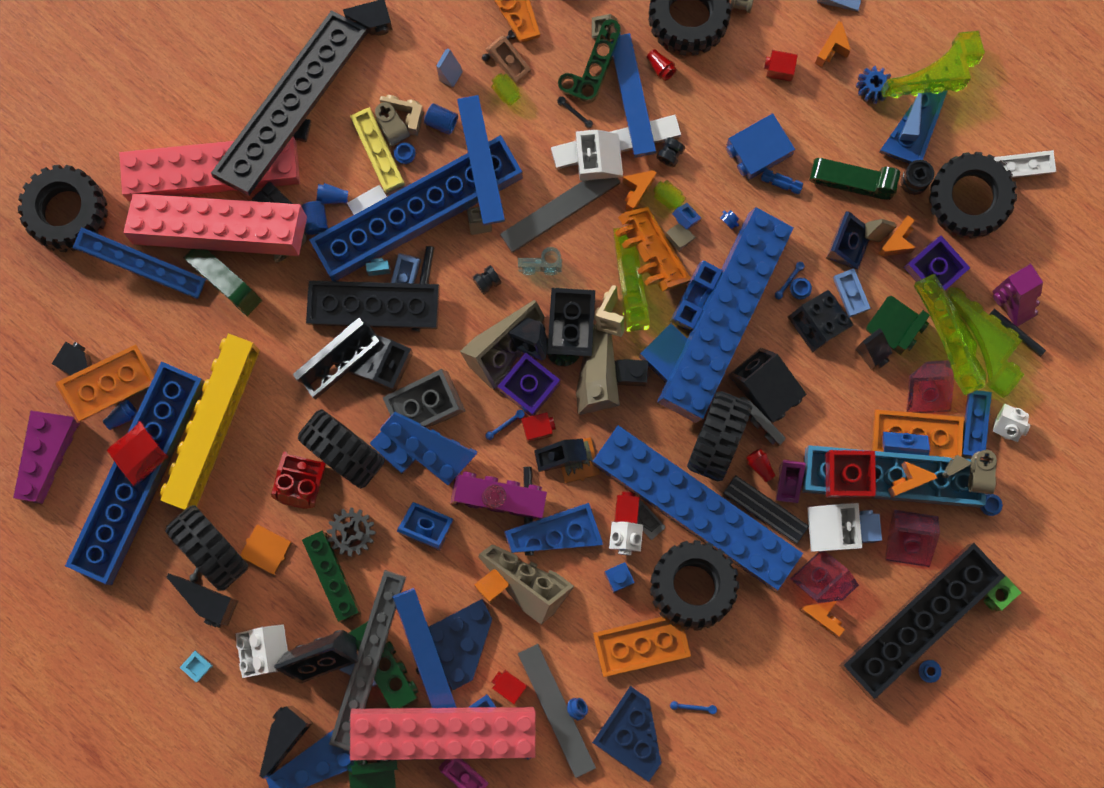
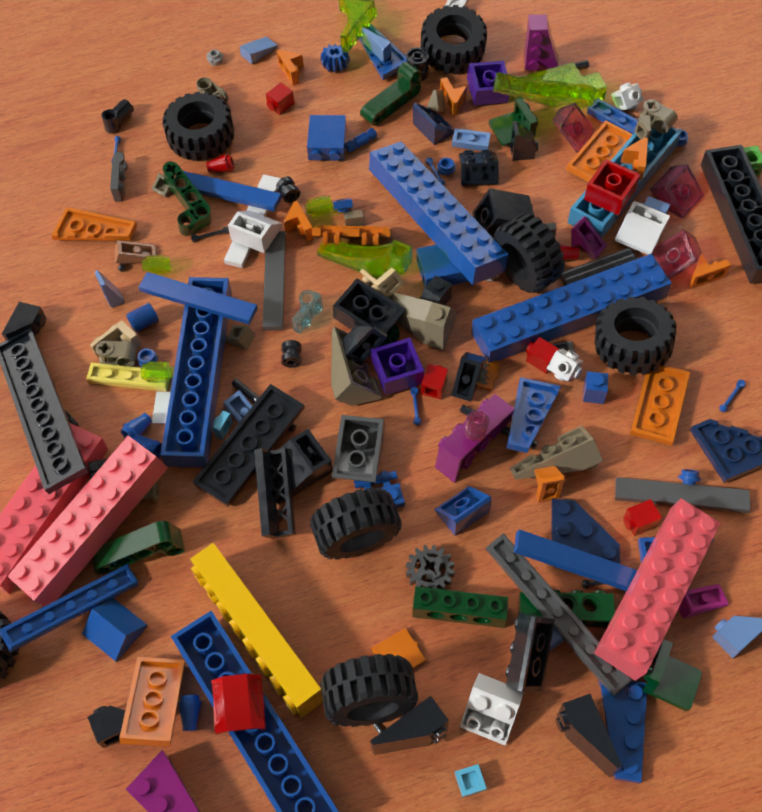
camera: 55 degrees left, 20 degrees down
(150, 307) = (113, 628): none -> blue slope
(298, 481) = (357, 588): red slope -> none
(390, 175) = (157, 372): none -> clear neon green brick
(435, 452) = (401, 463): blue wing -> none
(696, 293) = (398, 214): blue arch -> none
(730, 219) = (364, 180): blue plate -> none
(906, 443) = (606, 152): blue plate -> none

